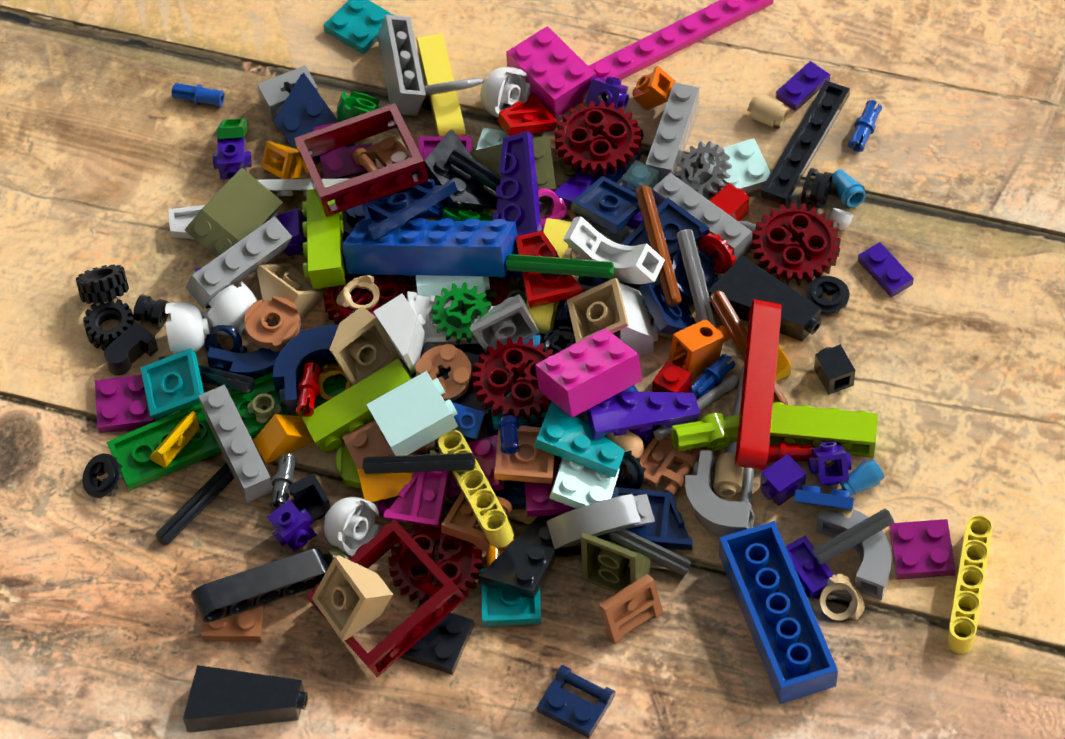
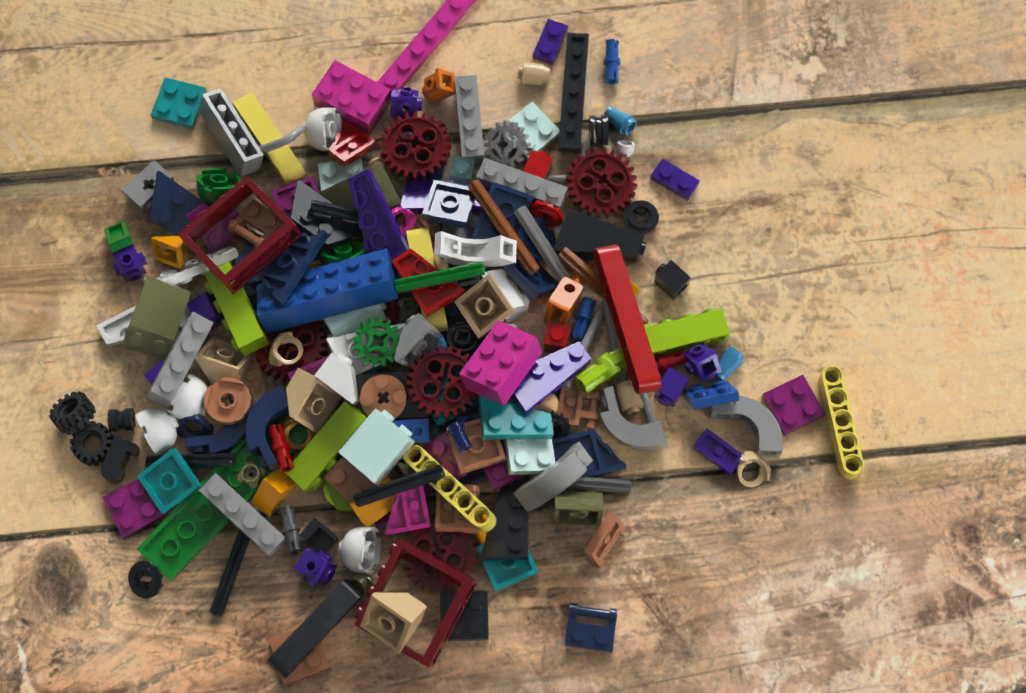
camera: 25 degrees left, 15 degrees up
(176, 440) = (191, 528): yellow slope -> none
(198, 94) = (74, 212): blue axle -> none
(777, 612) = (712, 500): blue brick -> none
(853, 536) = (745, 419): dark grey axle -> none

